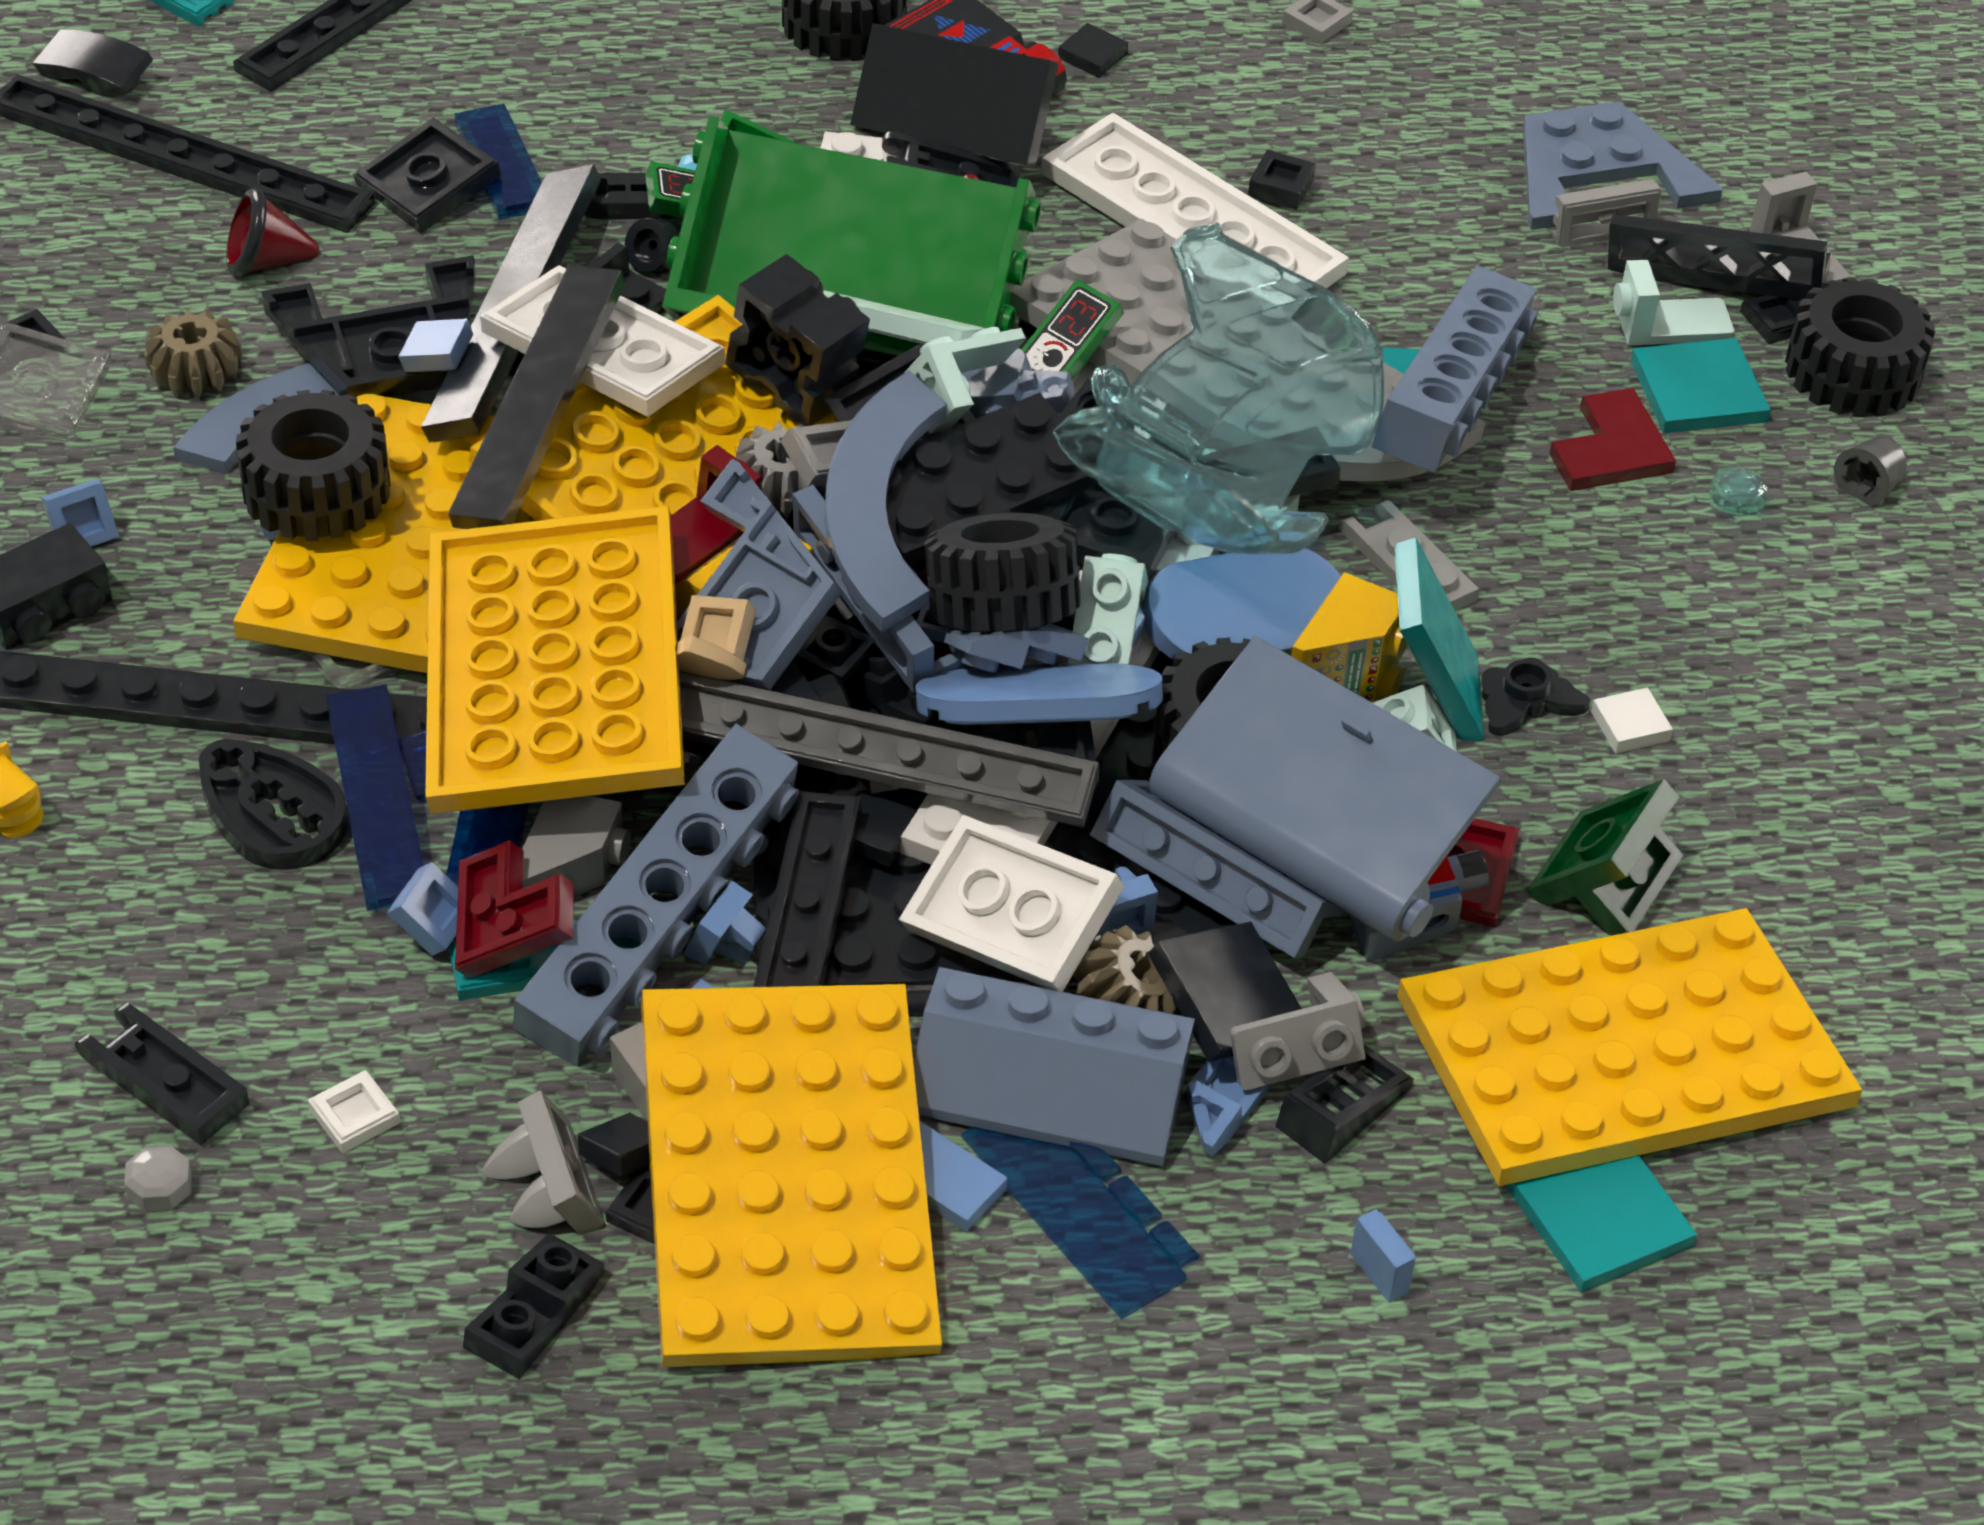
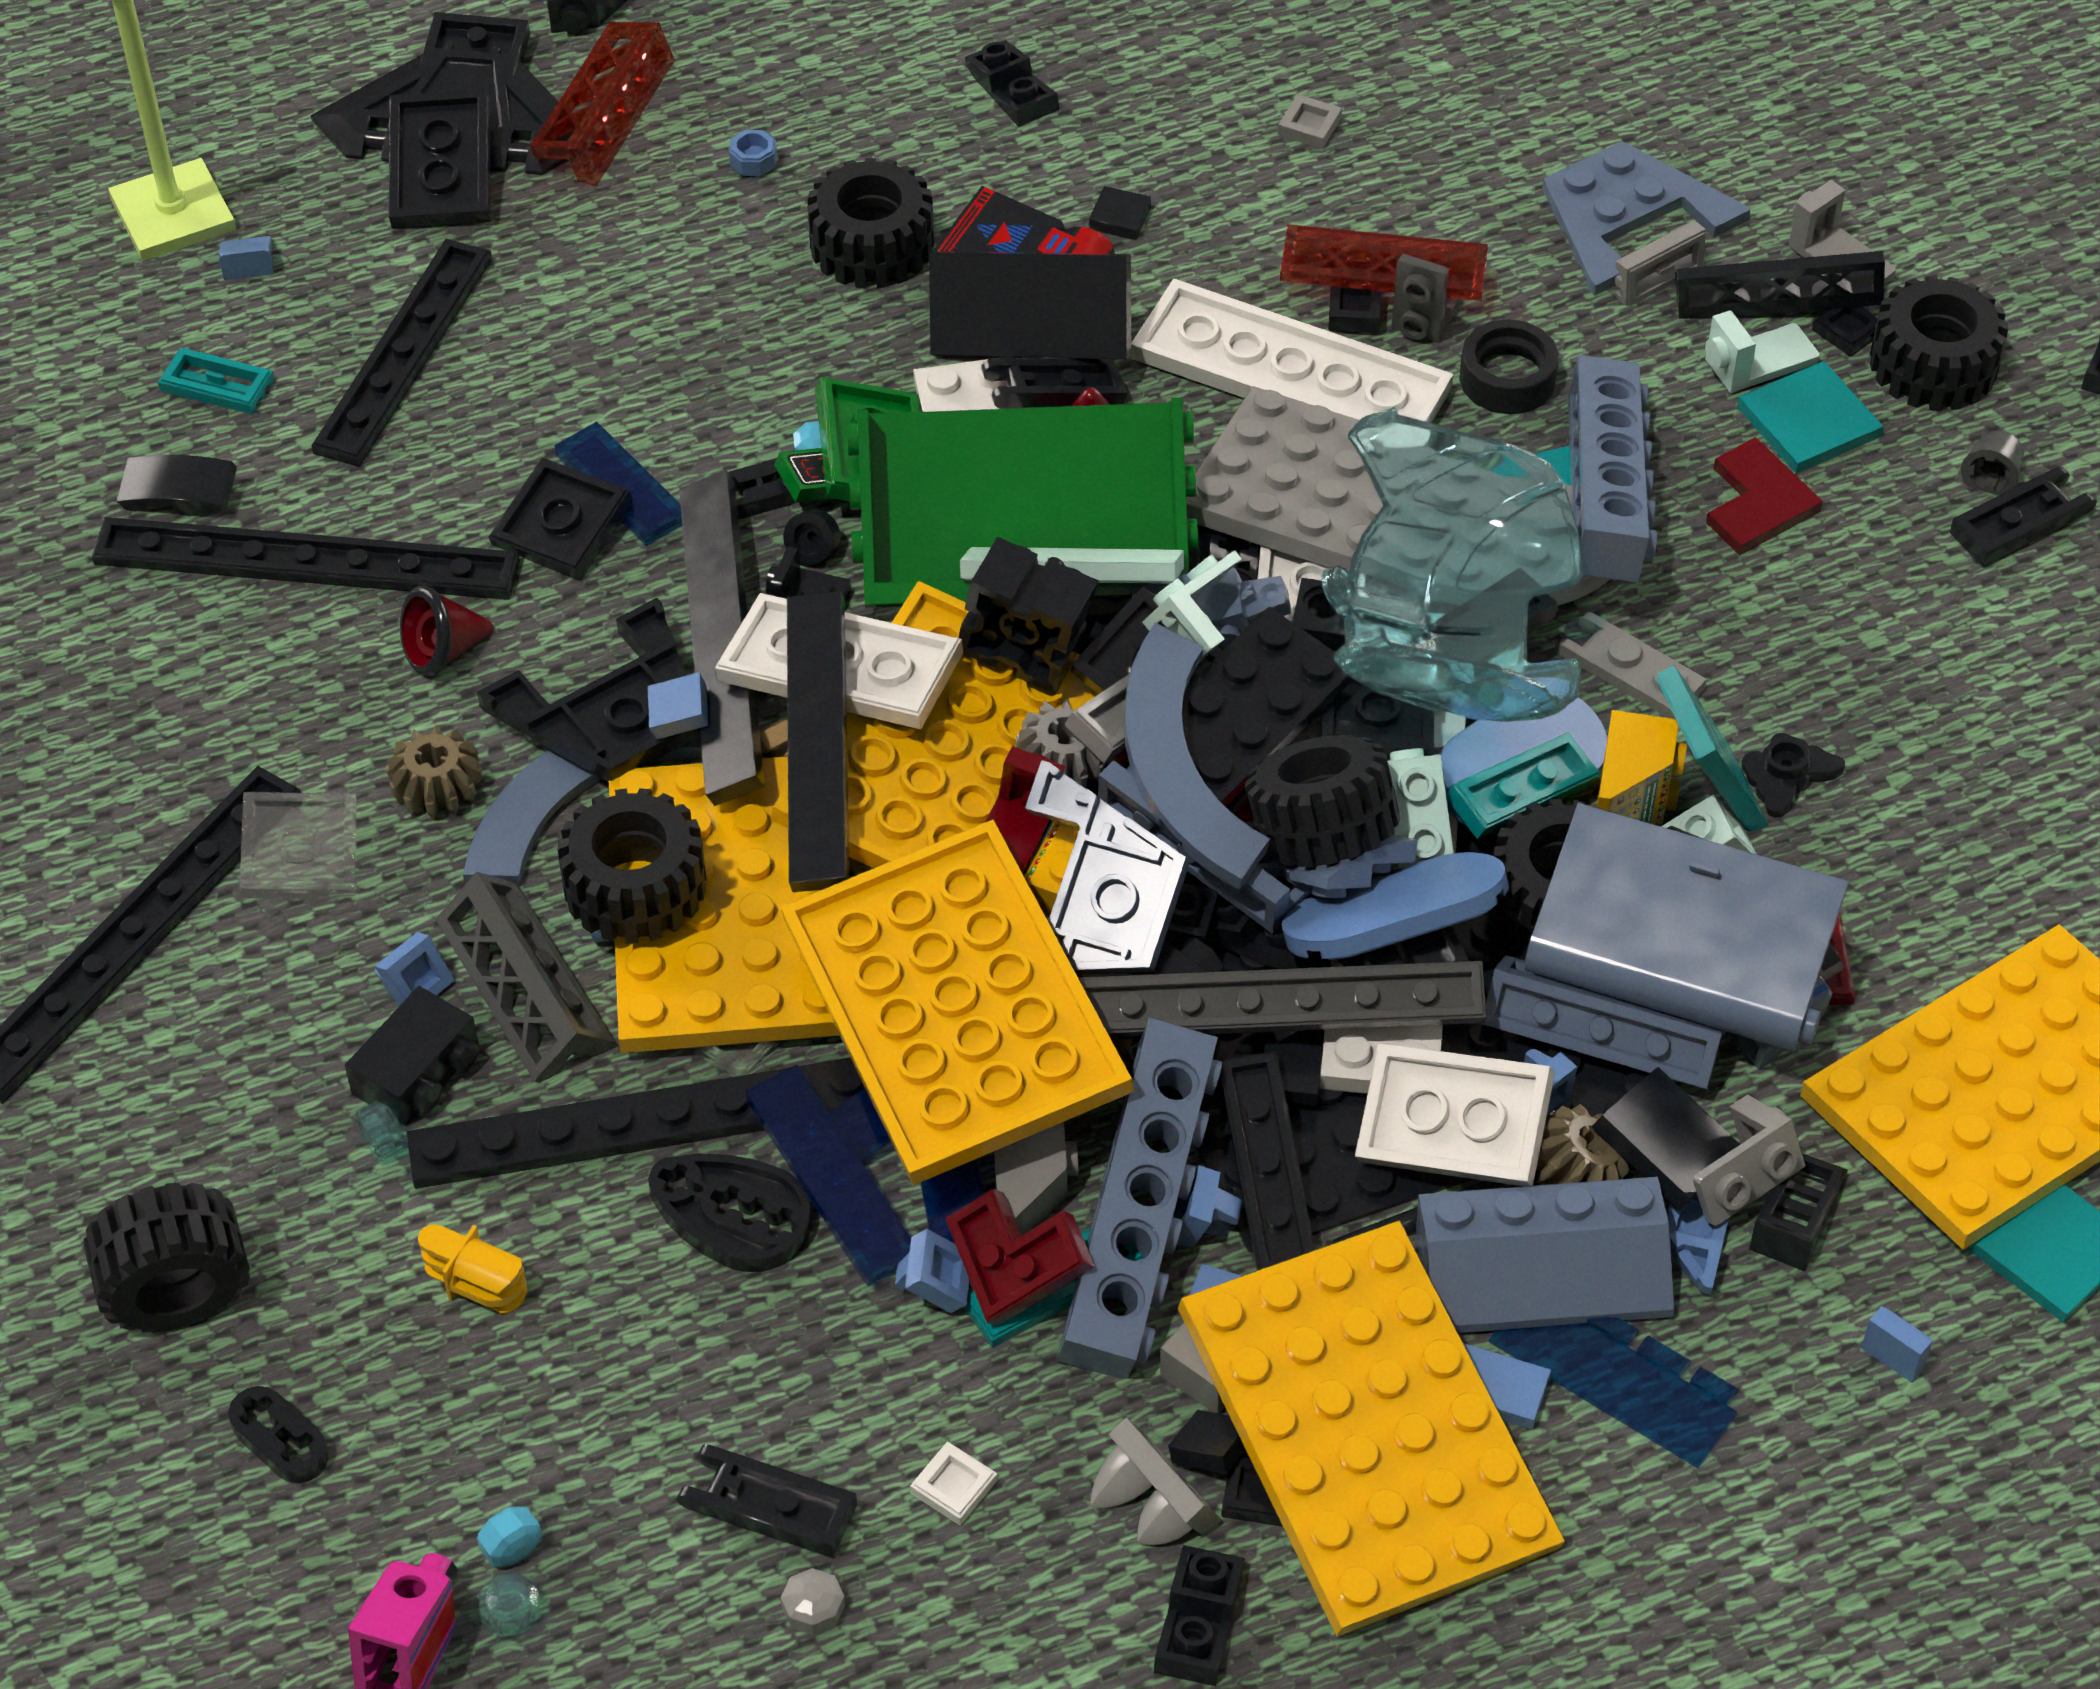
camera: 15 degrees left, 5 degrees up
(194, 538) = (538, 968): none -> dark grey fence
(715, 637) = (1093, 937): tan tile -> none
(1072, 330) = (1260, 529): tile -> none
(1182, 622) = (1533, 776): none -> teal tile
(1326, 145) = (1371, 259): none -> clear red fence
(1342, 186) = (1421, 299): none -> dark grey bracket
(1406, 291) = (1505, 394): none -> black tyre
(1613, 858) = (1930, 911): dark green bracket -> none
(1631, 720) = (1887, 770): white tile -> none
(1738, 491) = (1886, 515): clear light blue tile -> none
(1878, 525) = (2019, 516): none -> black hinge

